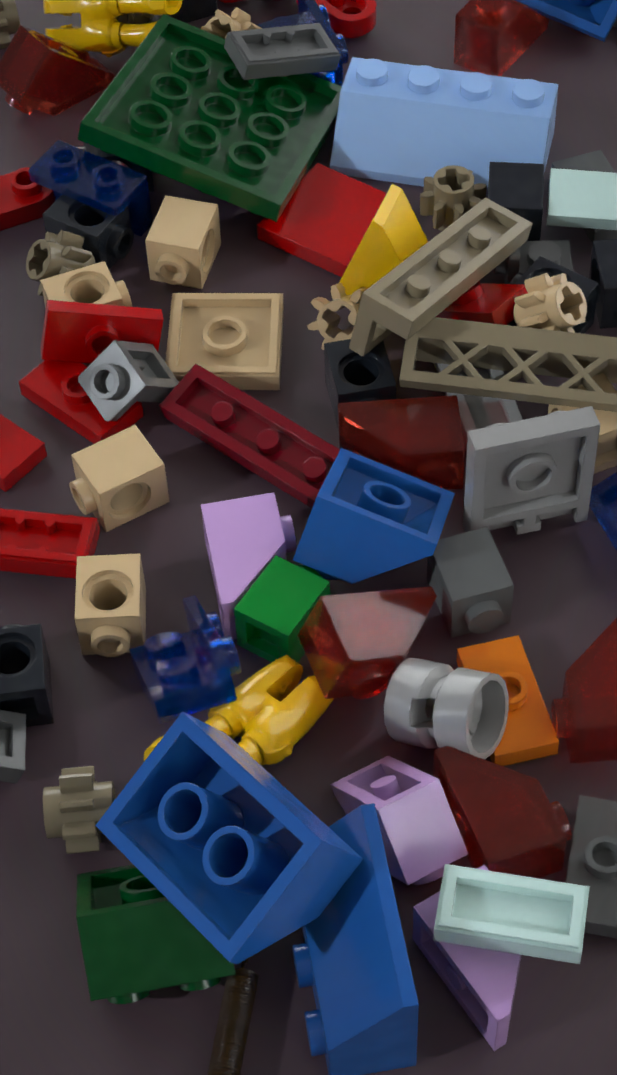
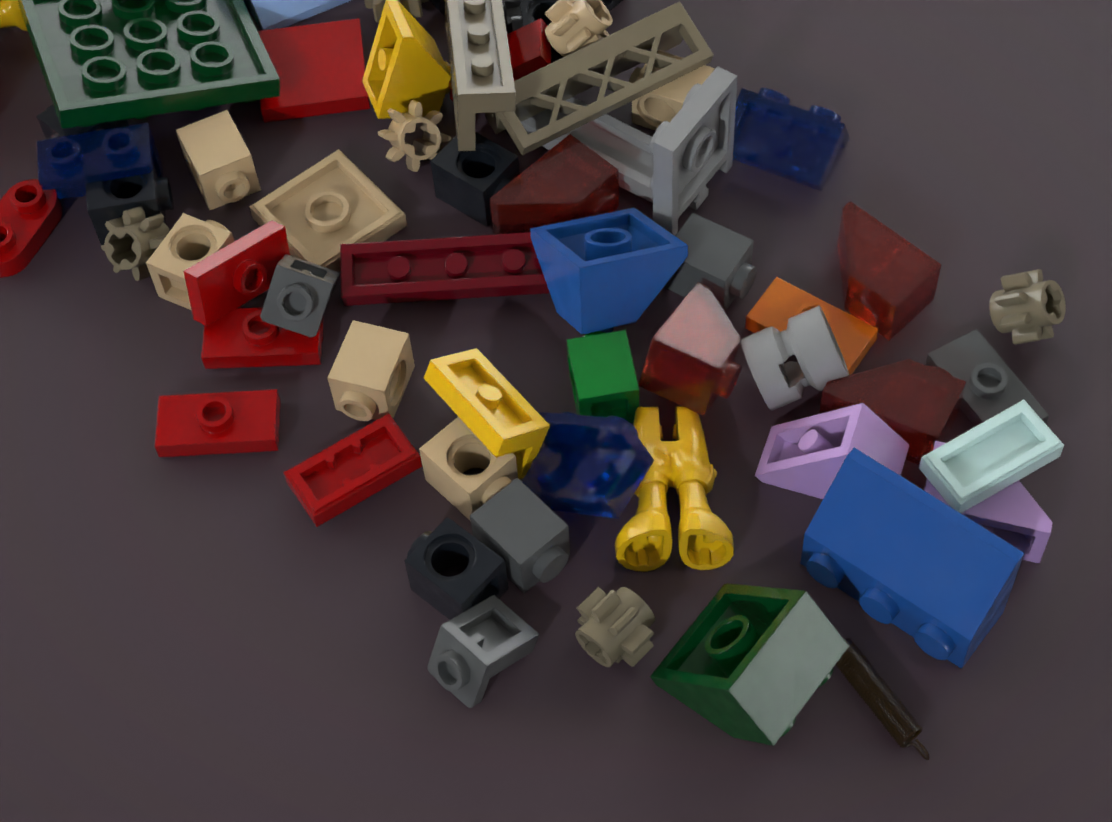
camera: 40 degrees left, 5 degrees up
(90, 685) = (523, 534): none -> dark grey brick
(158, 561) = (489, 406): none -> yellow panel
(226, 841) = (780, 553): blue slope -> none
(240, 544) = (531, 354): lavender slope -> none

